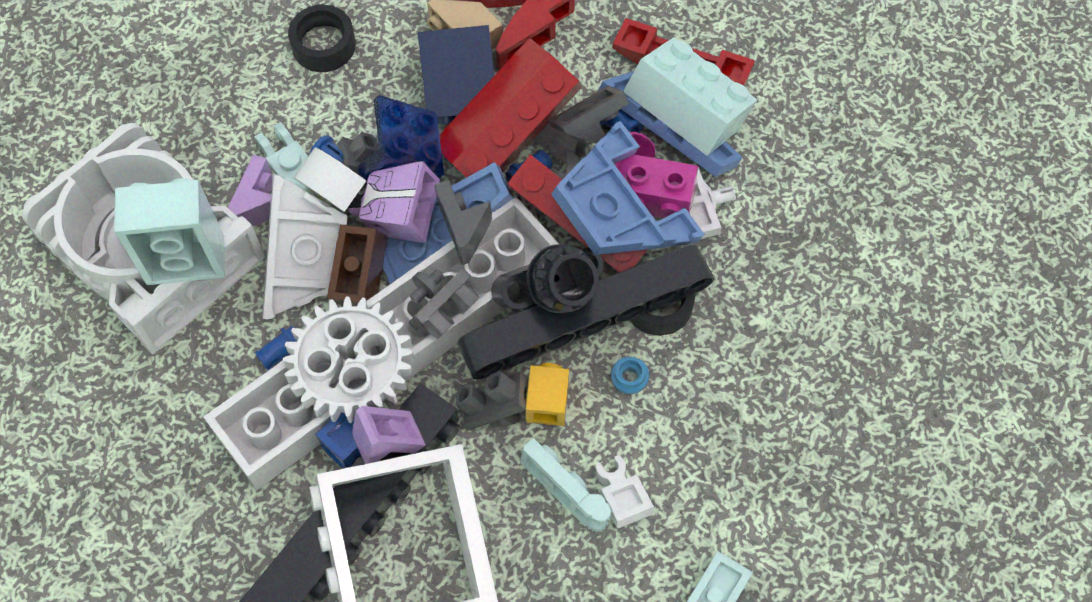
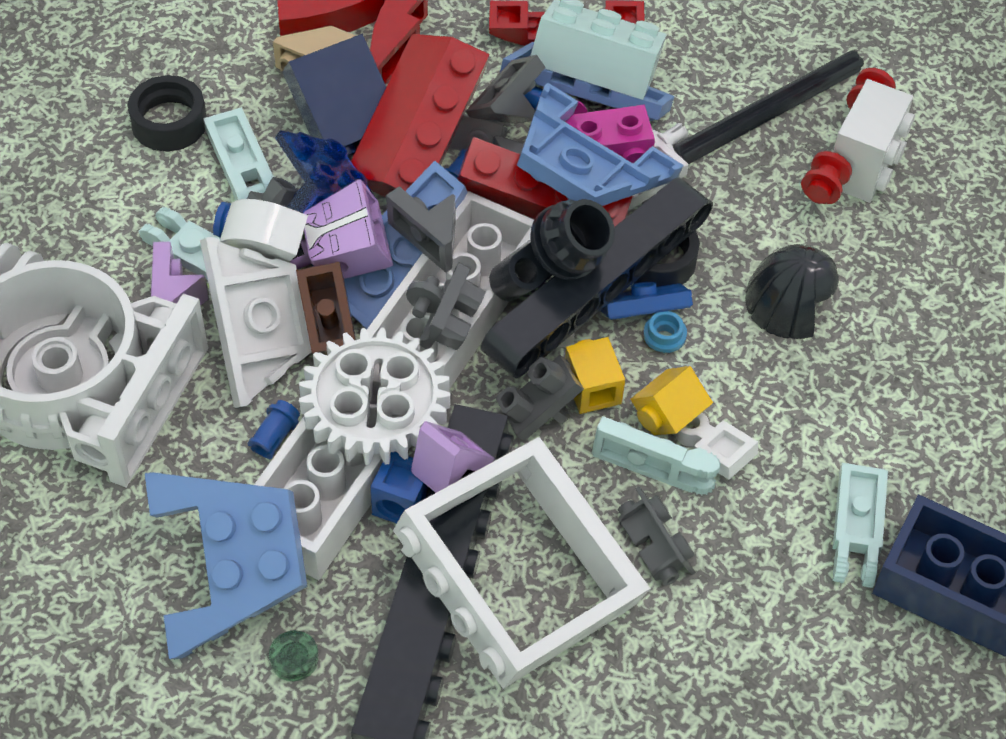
camera: 25 degrees left, 10 degrees down
(169, 231) = (131, 313): light aqua brick -> none
(200, 449) = (248, 552): none -> medium blue wing
(209, 547) = (293, 655): none -> clear green tile
(360, 88) = (238, 152): none -> light aqua plate
(539, 574) = (668, 551): none -> dark grey hinge
(598, 443) = (671, 401): none -> yellow brick
(627, 341) = (648, 299): none -> blue plate
(752, 372) = (787, 288): none -> black hair
(821, 194) = (769, 107): none -> black axle
(882, 260) = (865, 142): none -> white brick

